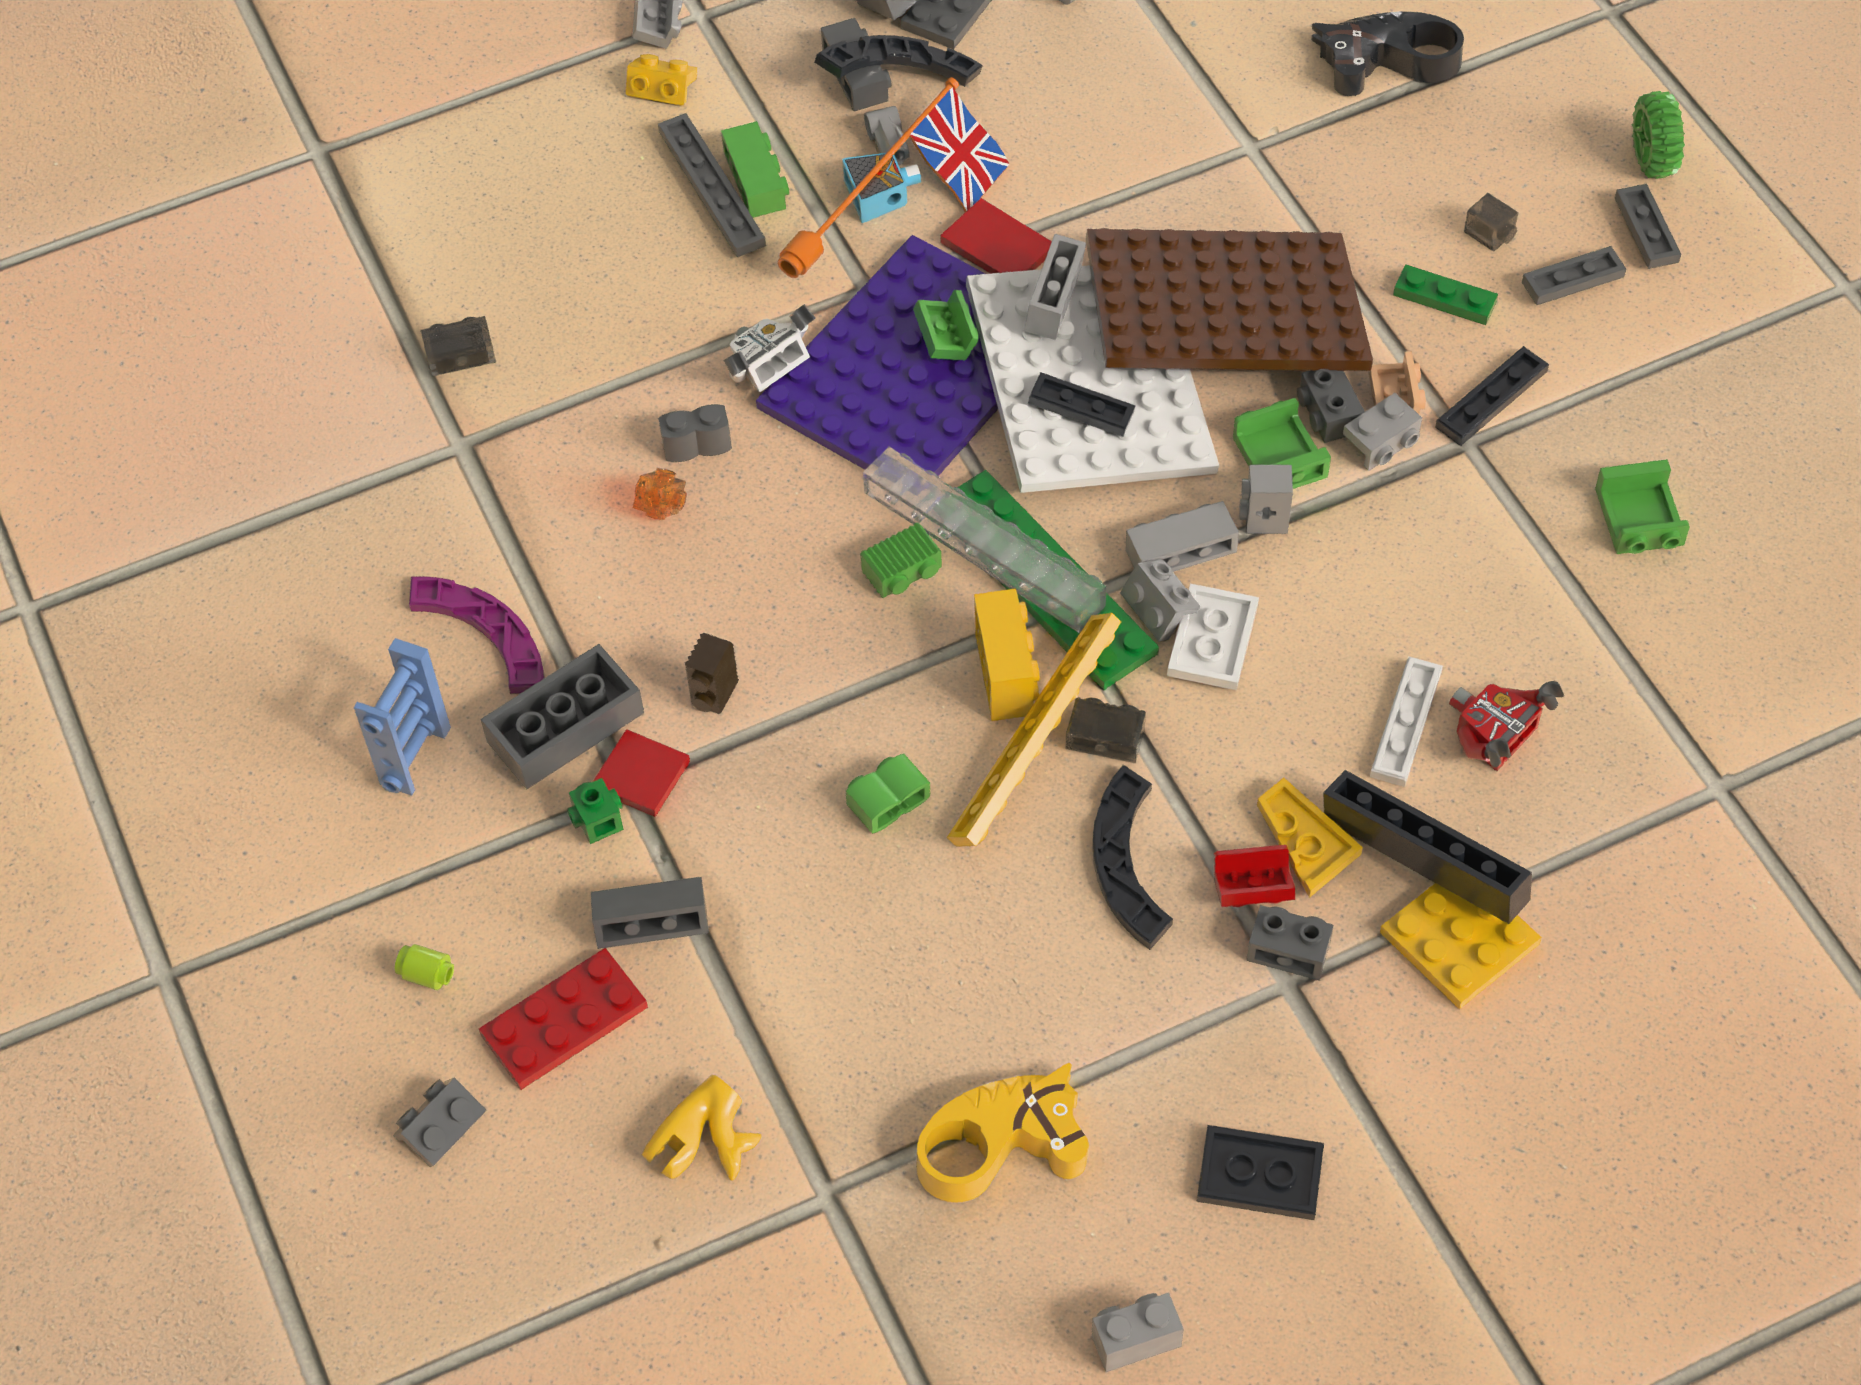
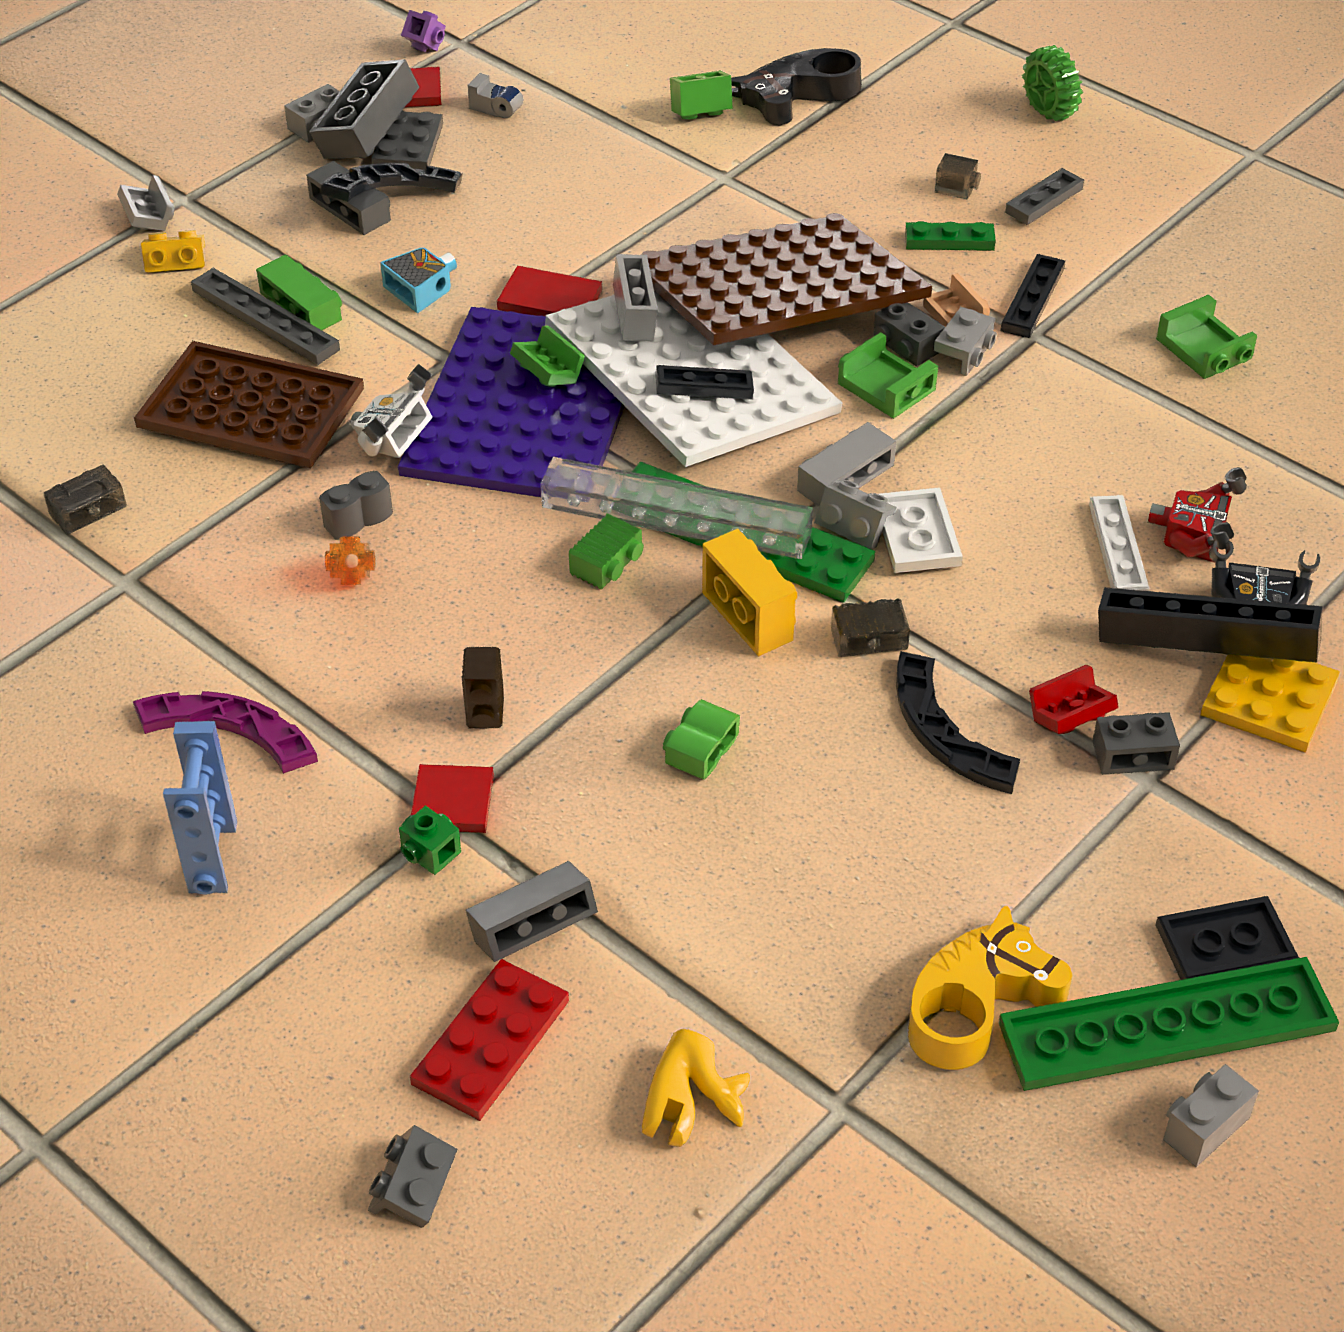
camera: 25 degrees left, 10 degrees down
(424, 966) = (324, 1037): lime brick -> none
(562, 716) = (353, 769): dark grey brick -> none
(653, 284) = (250, 404): none -> reddish brown plate
(886, 129) = (403, 236): light grey piece -> none
(950, 145) = (468, 231): flag -> none
(1034, 729) = (809, 647): yellow plate -> none
(1156, 1231) = (1166, 1023): none -> green plate
(1267, 499) = (906, 409): light grey brick -> none
(1272, 36) = (701, 94): none -> bright green brick
(1314, 841) = (1113, 660): yellow wing -> none
(1511, 822) = (1259, 582): none -> torso
(1647, 226) = (1079, 149): dark grey plate -> none

